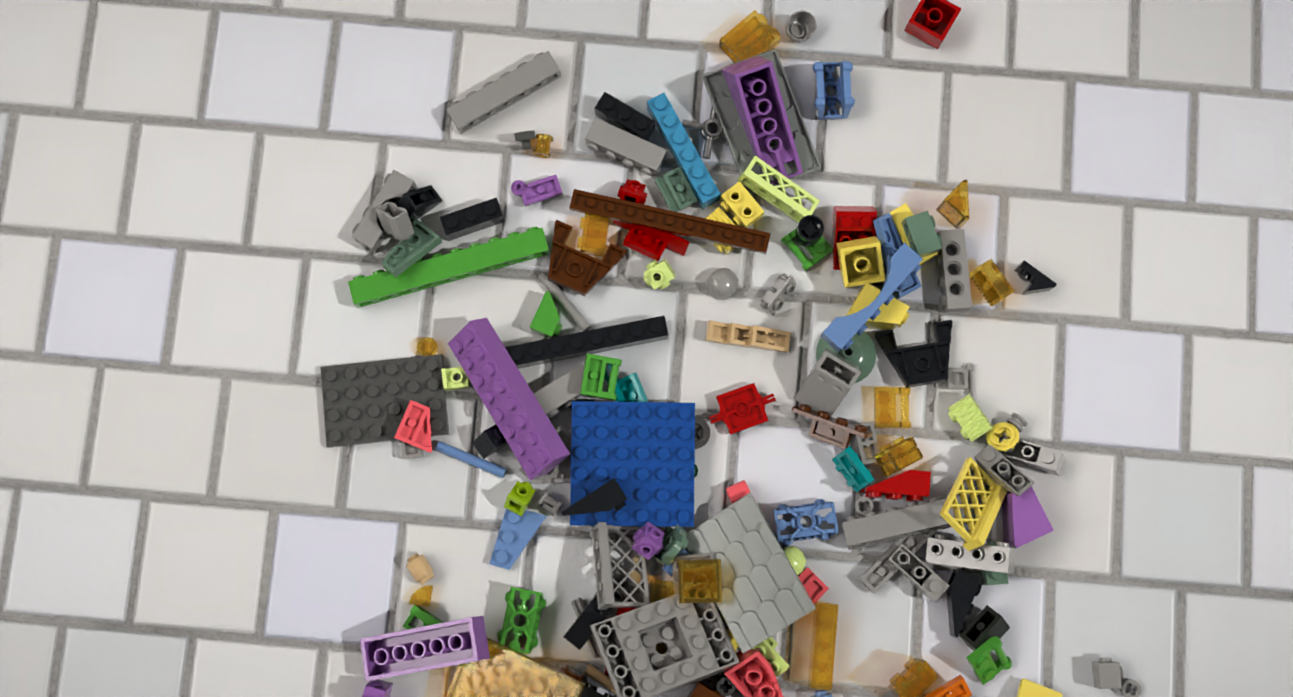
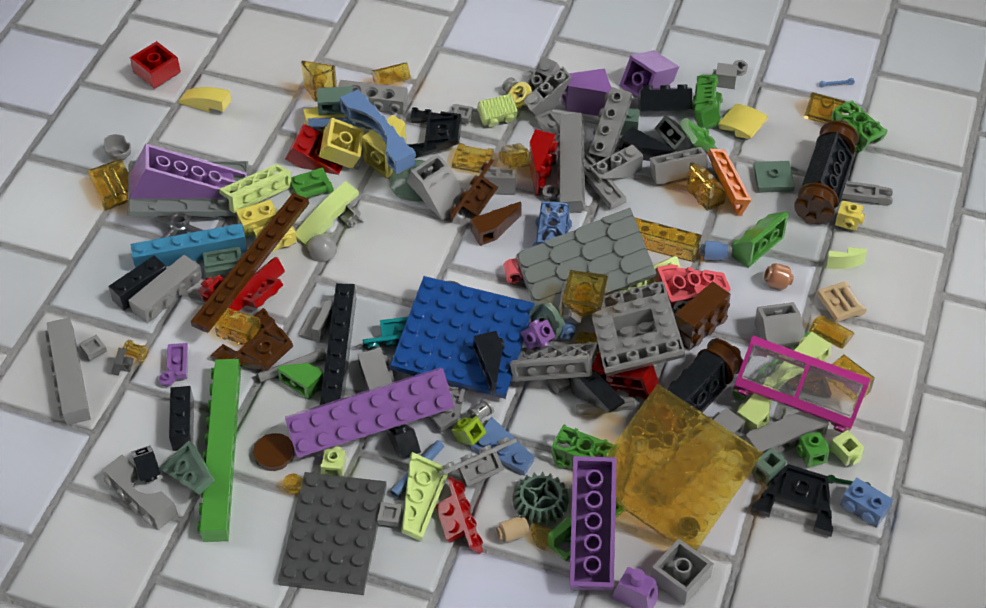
camera: 75 degrees left, 30 degrees down
(395, 220) = (156, 473): light grey brick -> none
(416, 427) = (370, 499): coral wing -> none
(423, 513) = (457, 518): none -> red bracket
(441, 472) = (421, 495): none -> yellowish green wing
(457, 314) = (274, 451): none -> reddish brown tile
(460, 578) = (545, 505): none -> sand green gear
(482, 519) = (479, 466): none -> light grey bracket
(538, 104) = (93, 347): none -> light grey plate
(594, 376) = (374, 339): bright green plate -> none
(623, 309) = (317, 322): none -> light grey panel
(661, 267) = (295, 284): yellowish green brick -> none
(742, 408) = (439, 254): red plate -> none
(748, 336) = (376, 239): tan slope -> none
(764, 275) = (322, 217): none -> yellowish green slope
(796, 454) = (493, 224): none -> reddish brown slope
(809, 230) = (301, 170): black wheel -> none
(842, 88) = (184, 135): medium blue piece -> none
(853, 469) = (516, 183): teal plate -> none
(900, 91) = (206, 98): none -> light yellow slope
(937, 644) = (676, 165): none -> light grey brick
(985, 512) = (574, 108): light yellow fence -> none
(1038, 281) = (396, 51): black slope -> none
(1041, 609) = (665, 98): none -> black brick
(1050, 660) = (707, 101): none -> bright green piece
(1080, 581) = (648, 69): none -> medium lavender slope

